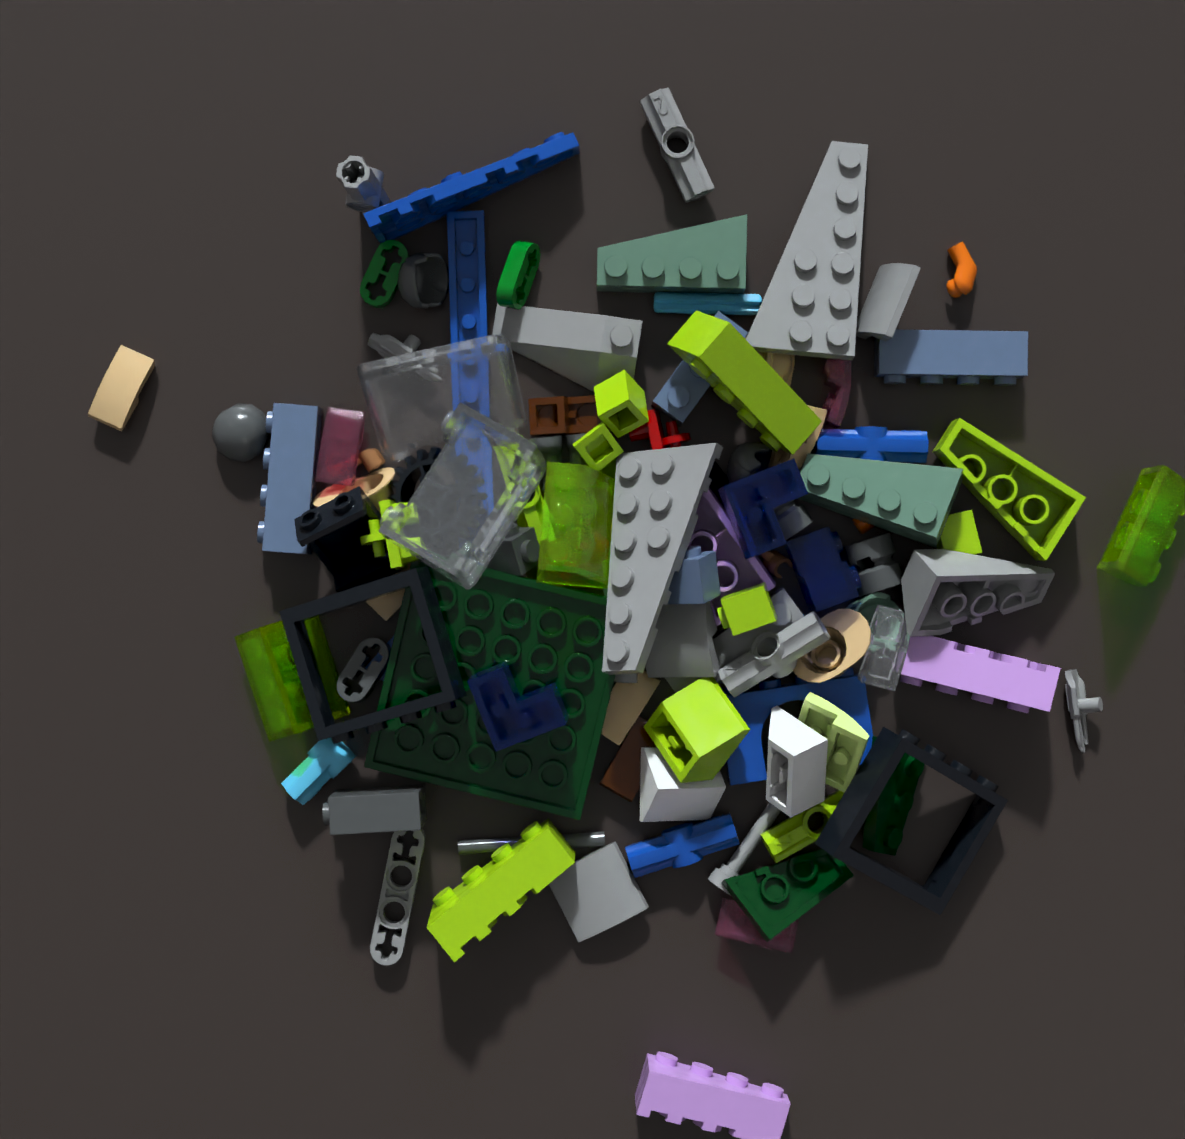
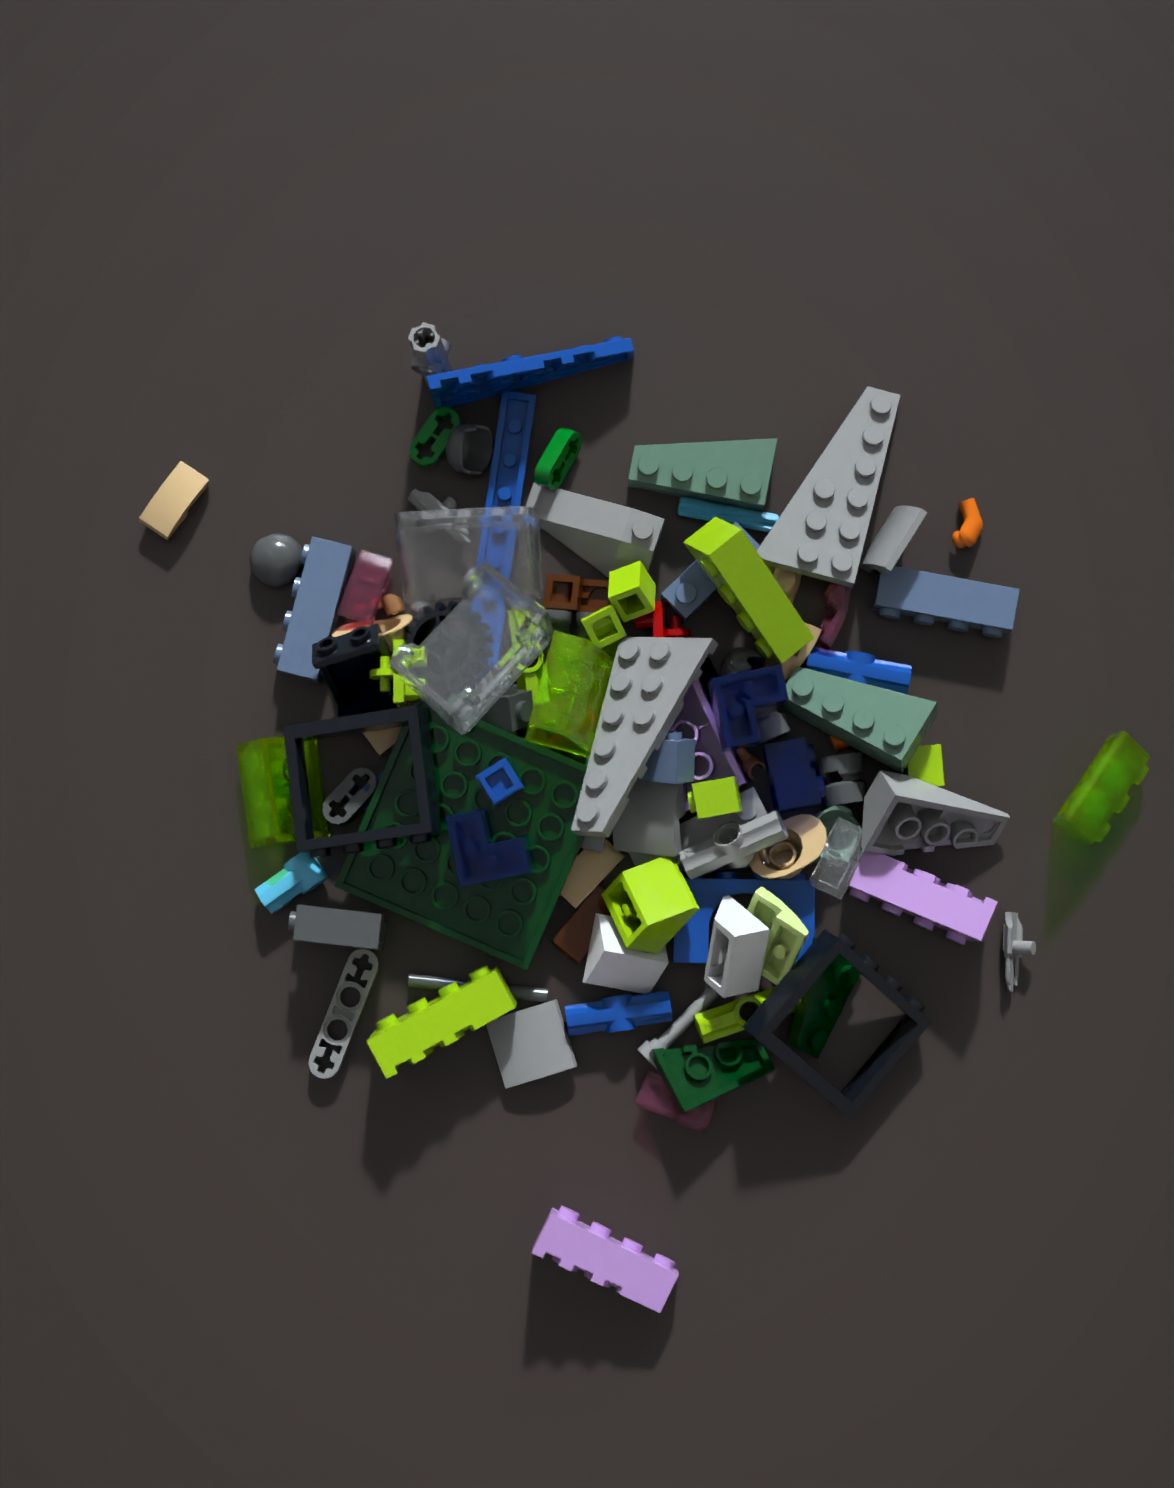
camera: 20 degrees right, 5 degrees down
(517, 630) = (499, 781): none -> blue tile
(668, 124) = (719, 345): light grey piece -> none
(1015, 491) = (982, 732): lime wedge -> none

